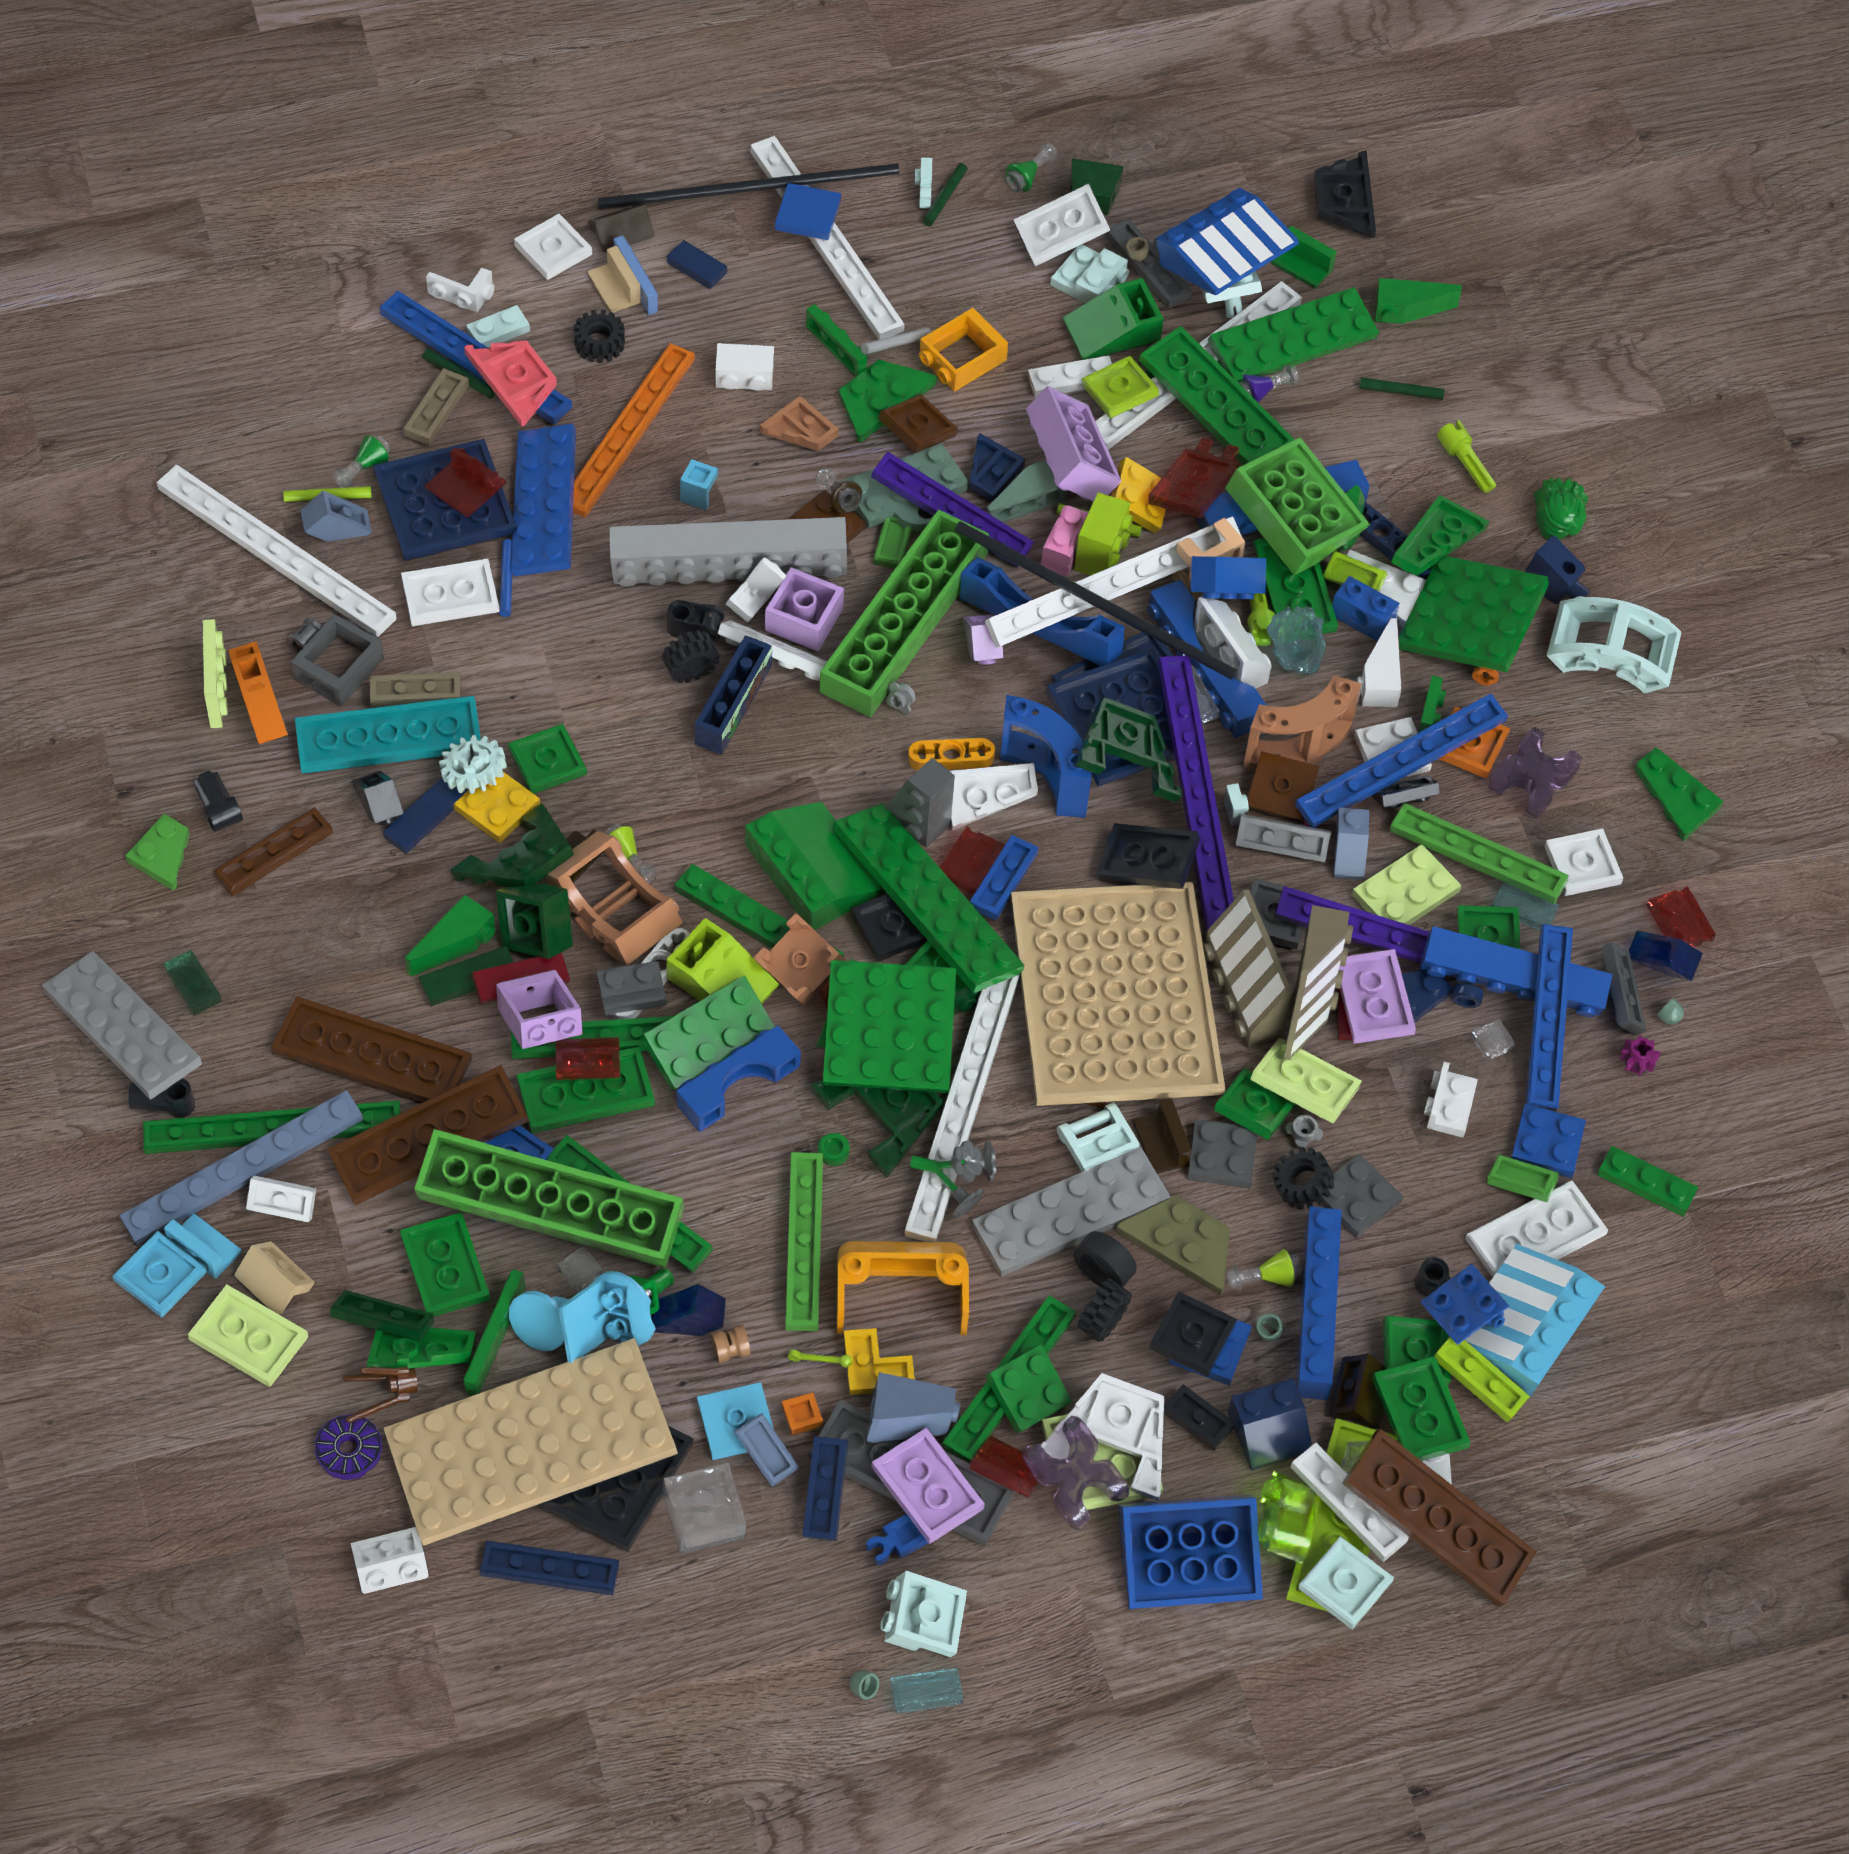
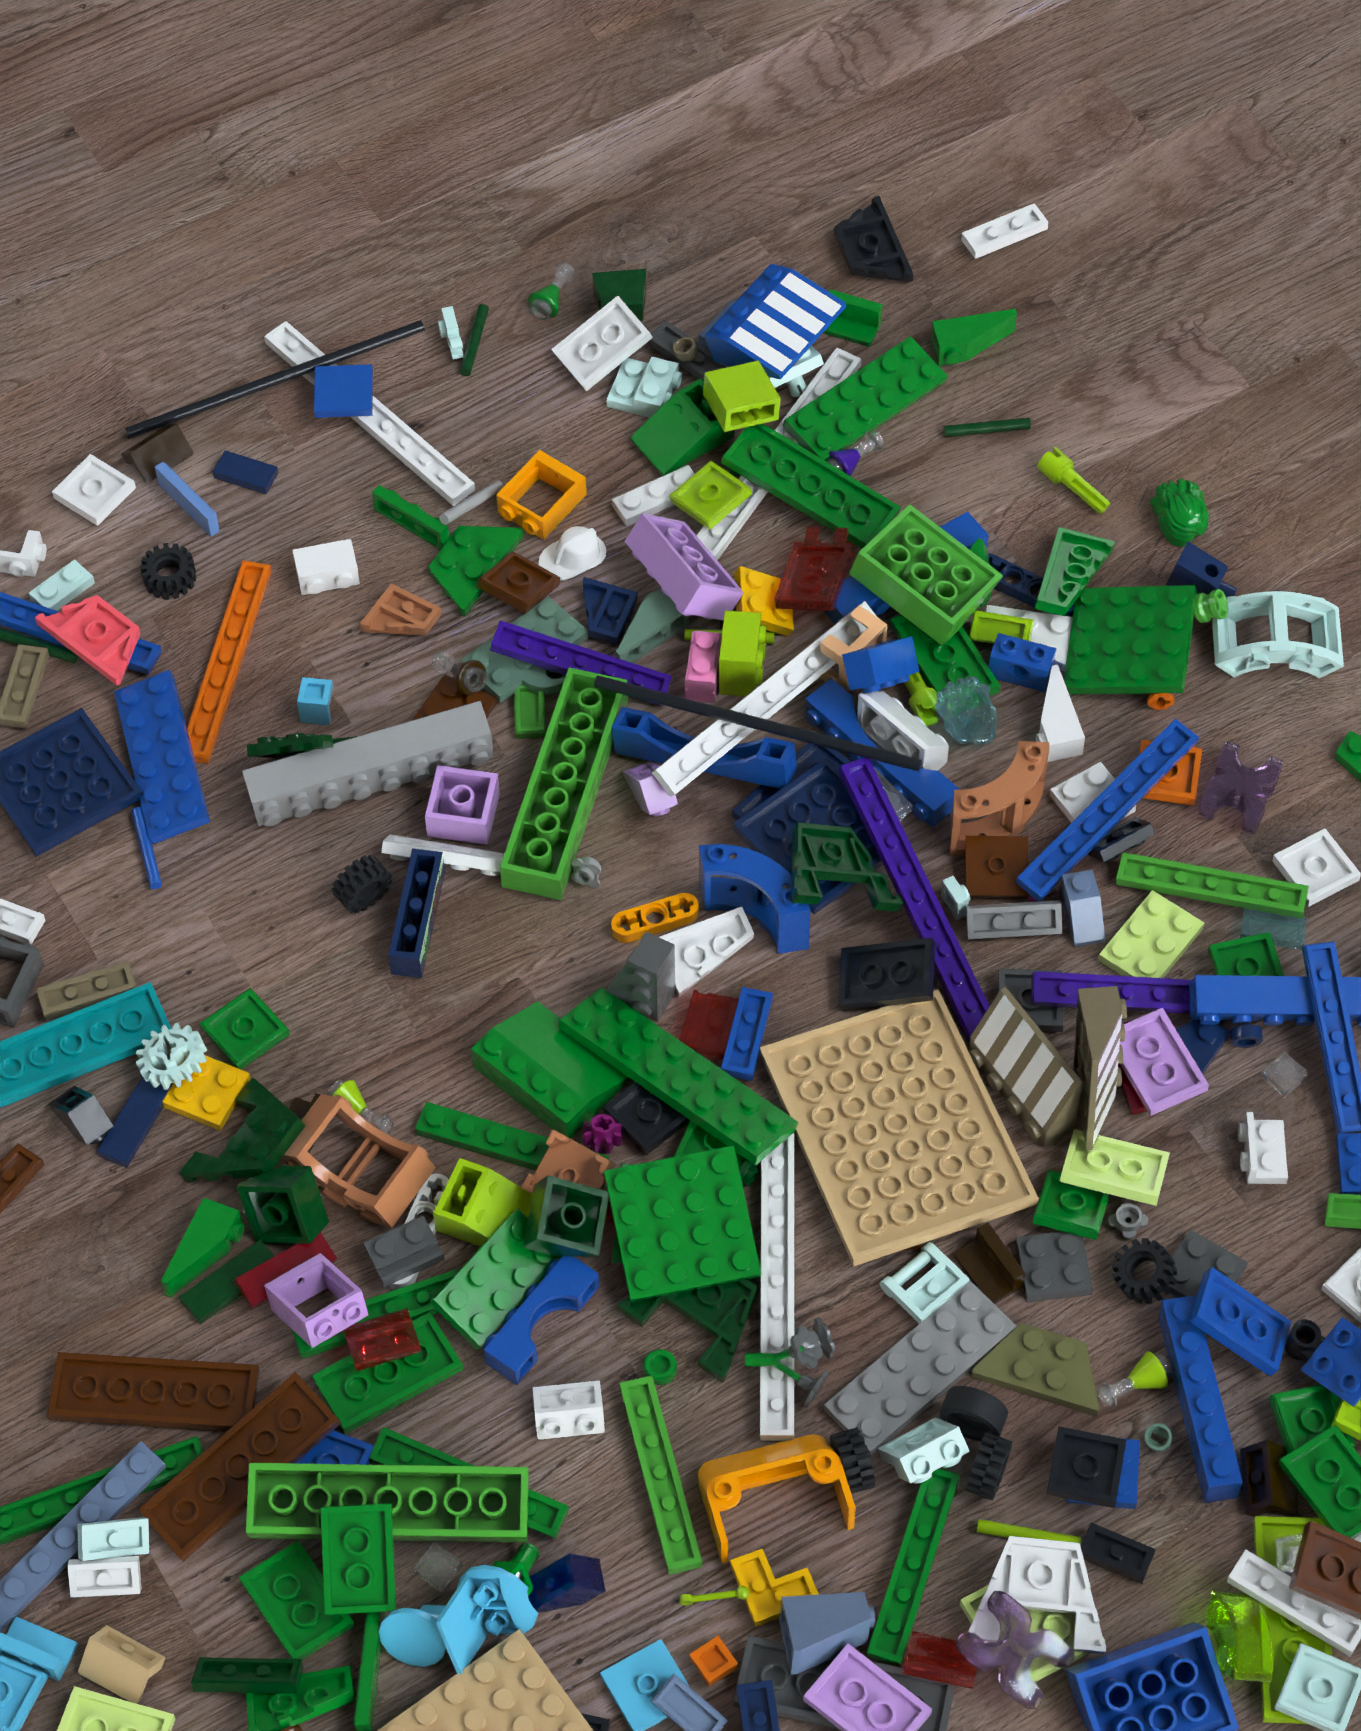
camera: 10 degrees left, 0 degrees up
(297, 1167) = (113, 1538): none -> light aqua plate
(450, 592) = (93, 878): white plate -> none
(465, 483) = (77, 760): clear red hinge -> none
(507, 1237) = (358, 1558): none -> green plate
(616, 282) = (168, 510): tan panel -> none
(645, 515) = (290, 745): none -> dark green wing
(692, 616) = (354, 843): black piece -> none
(730, 1343) = (617, 1606): medium nougat wheel -> none
(738, 1164) = (568, 1410): none -> white bracket
(756, 589) = (408, 796): white bracket -> none
(784, 994) = (566, 1218): none -> dark green slope
(843, 931) = (602, 1134): none -> magenta gear
(978, 410) = (573, 553): none -> white piece
(981, 1273) = (854, 1458): none -> black tyre
(1028, 1388) = (937, 1570): green plate -> none
(1050, 1281) = (925, 1450): none -> light aqua plate
(1097, 1369) = (1006, 1530): none -> lime bar
(1173, 302) = (741, 396): none -> lime brick
(1270, 1424) = (1191, 1540): dark blue slope -> none
(1377, 1244) = (1240, 1321): none -> blue plate
(1434, 699) = (1117, 737): green plate -> none
(1476, 211) = (1004, 231): none -> white plate
(1558, 600) = (1210, 606): none -> bright green wheel

